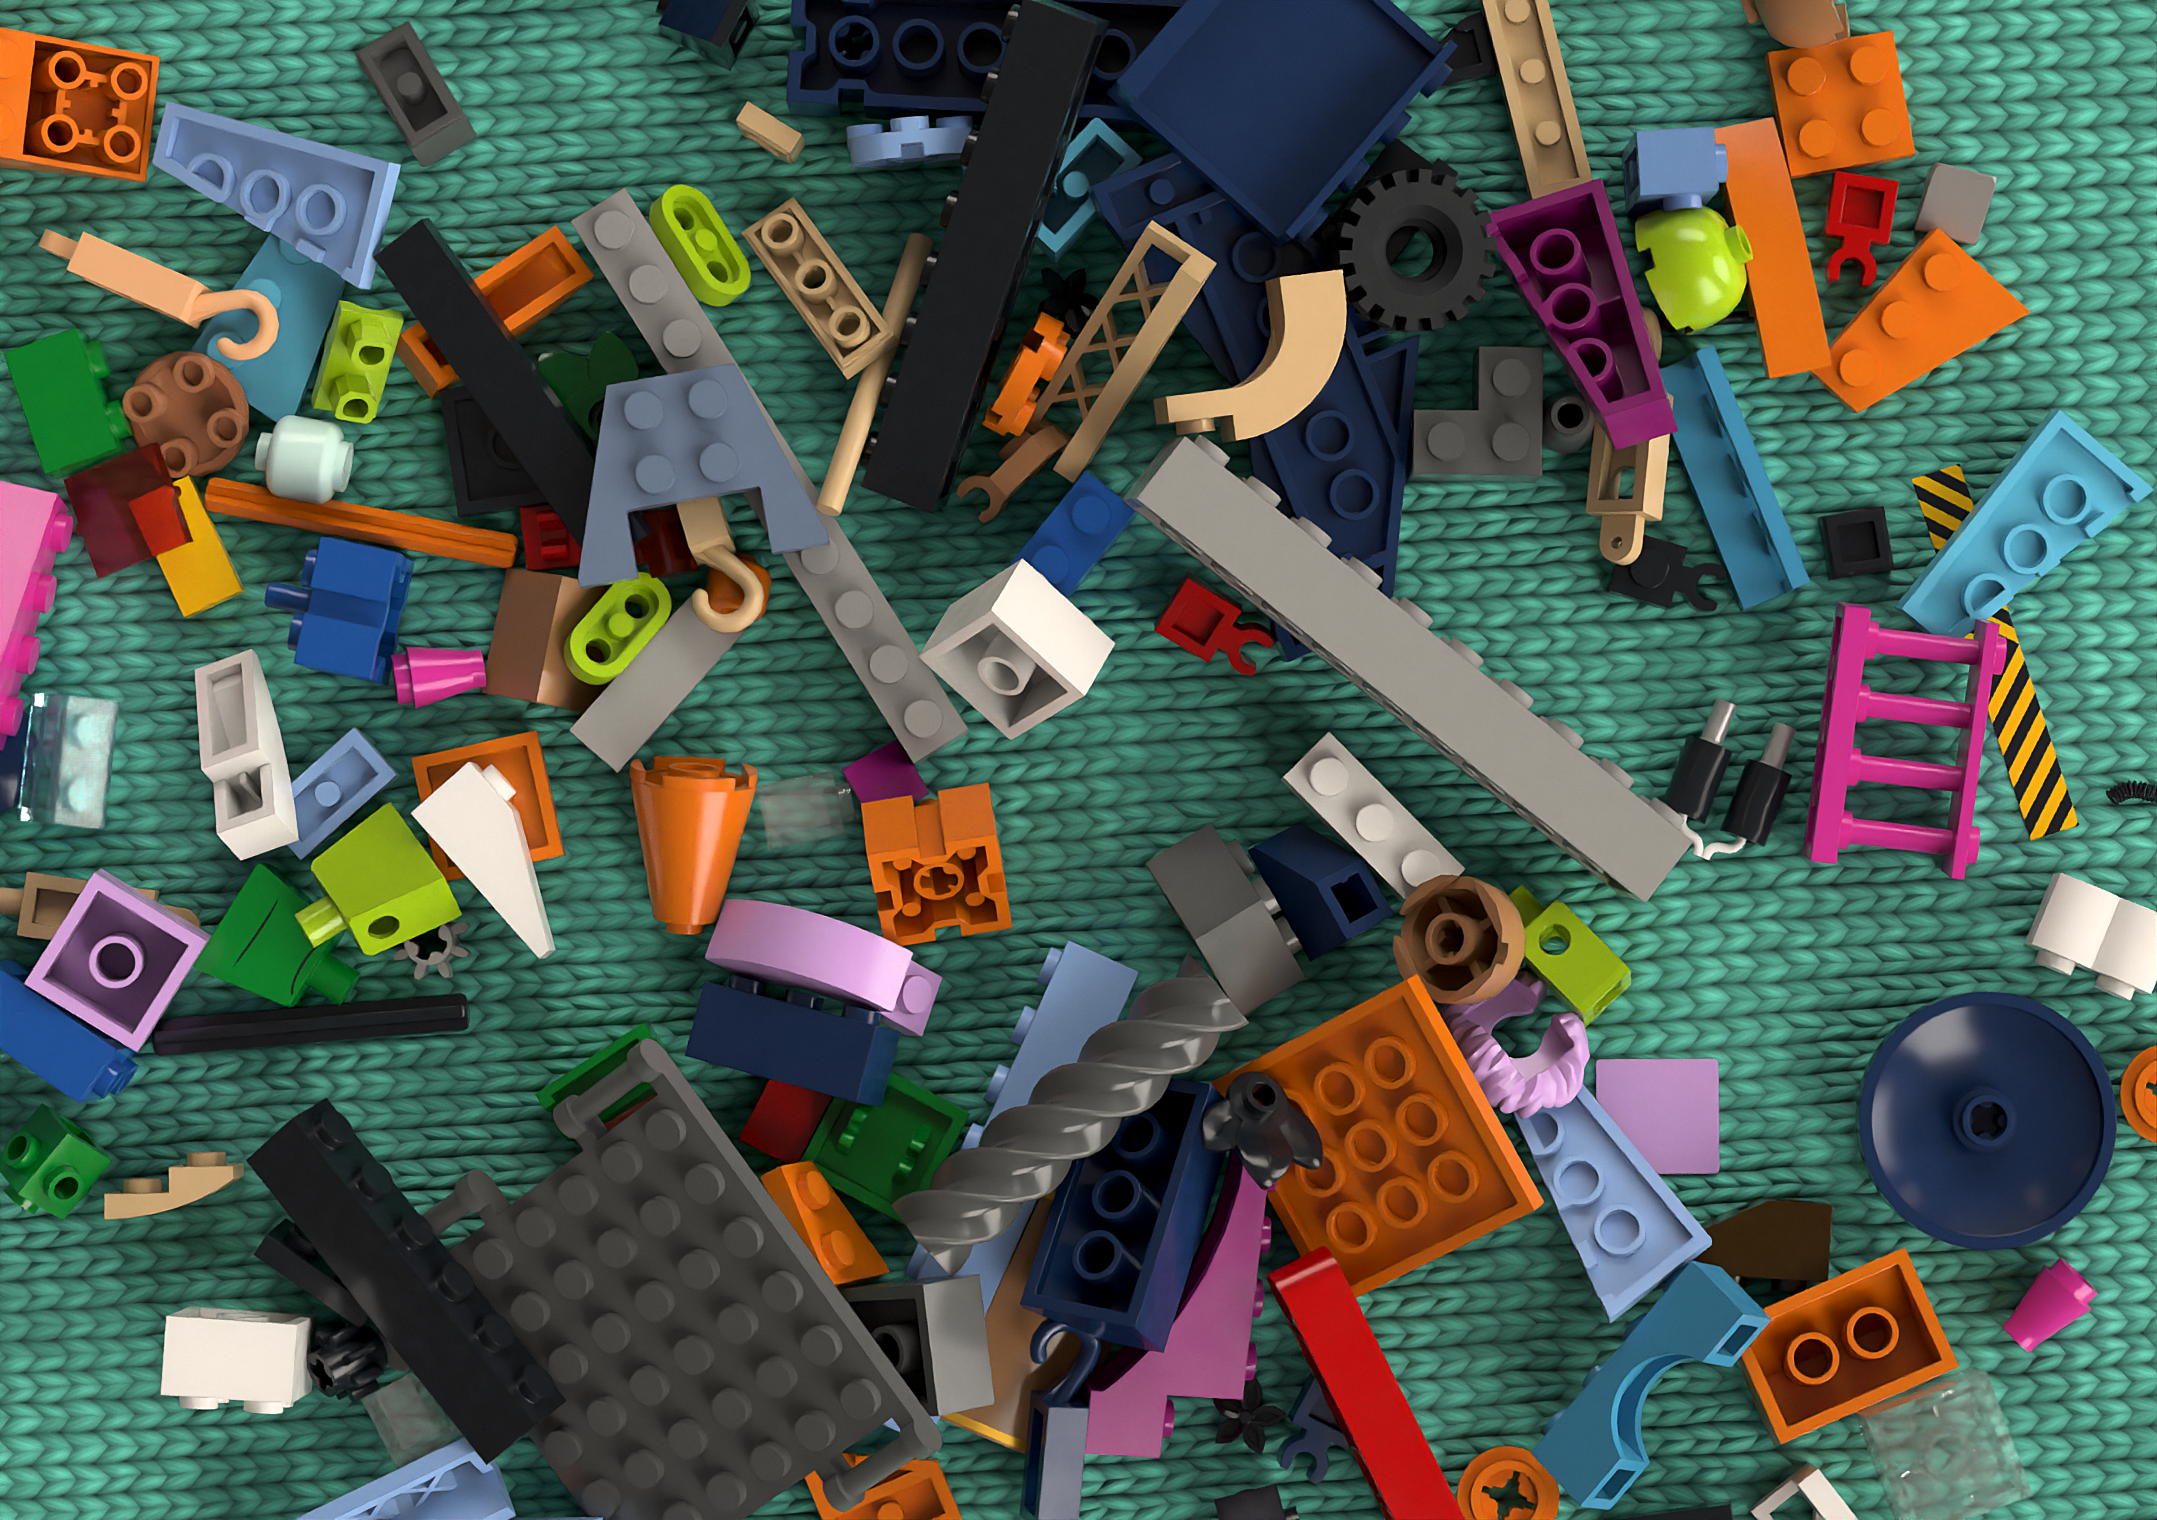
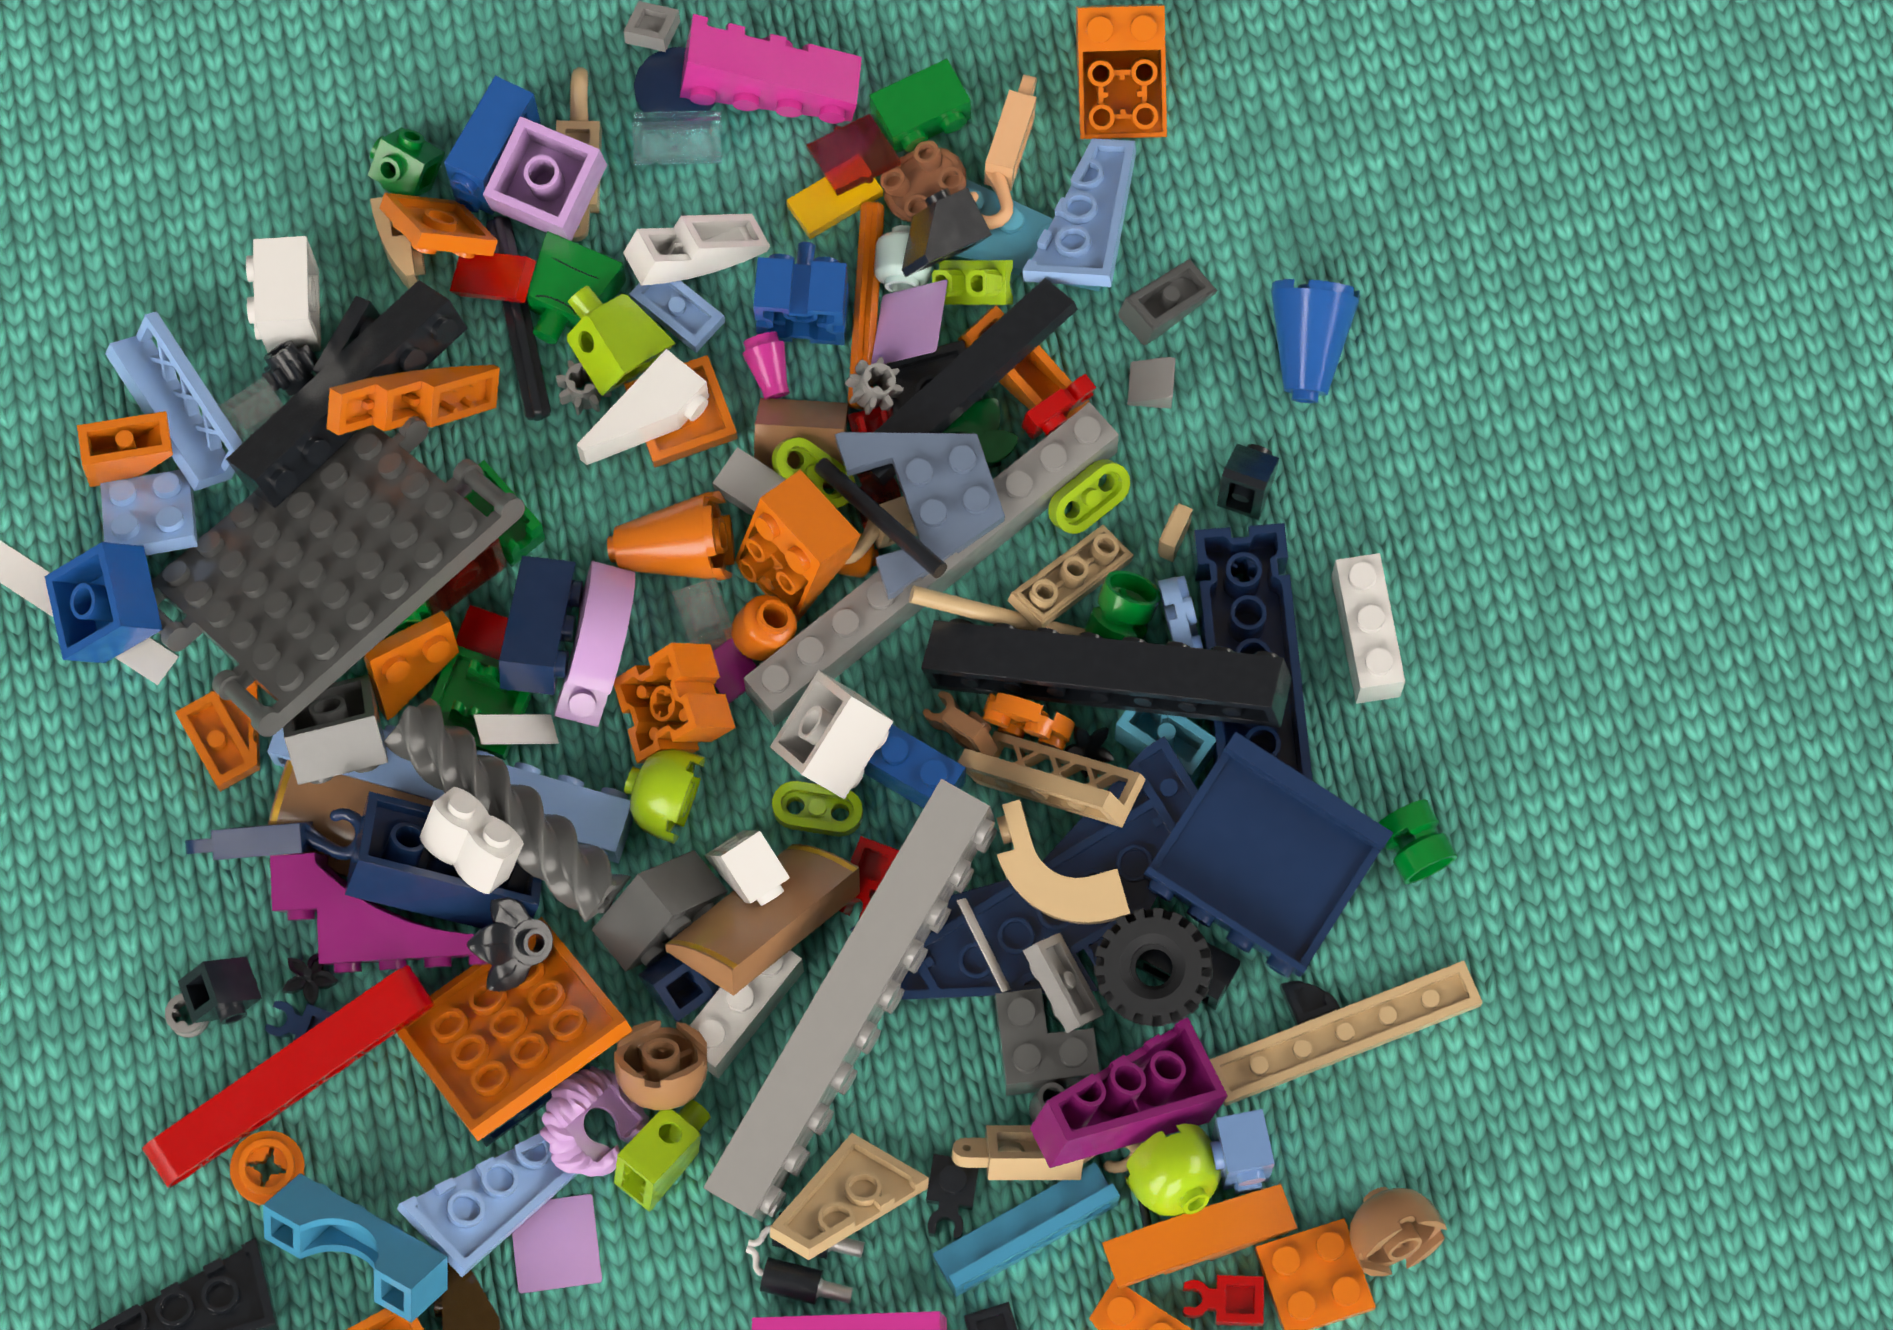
camera: 85 degrees right, 15 degrees down
(163, 1123) = (438, 225): none -> orange plate
(248, 1053) = (493, 277): none -> red tile
(281, 394) = (943, 230): none -> black slope
(408, 462) = (909, 322): none -> lavender sticker
(425, 1163) = (430, 394): none -> orange slope
(506, 508) = (869, 375): none -> light grey gear
(538, 132) = (1151, 382): none -> light grey slope
(580, 279) = (1053, 410): none -> red plate
(713, 538) = (880, 518): none -> black bar
(734, 664) = (795, 543): none -> orange slope
(837, 726) = (763, 627): none -> orange head
(885, 220) = (1124, 607): none -> green wheel
(938, 1091) = (516, 729): none -> white sticker
(1061, 894) = (663, 791): none -> lime cylinder
(1111, 690) = (817, 810): none -> lime plate
(1122, 1163) = (471, 840): none -> white brick
(1192, 789) = (749, 867): none -> white slope
(1262, 774) = (744, 939): none -> medium nougat slope
(1344, 479) = (983, 944): none -> white sticker
(1412, 378) = (1063, 982): none -> light grey plate
(1660, 715) = (844, 1196): none -> tan wing

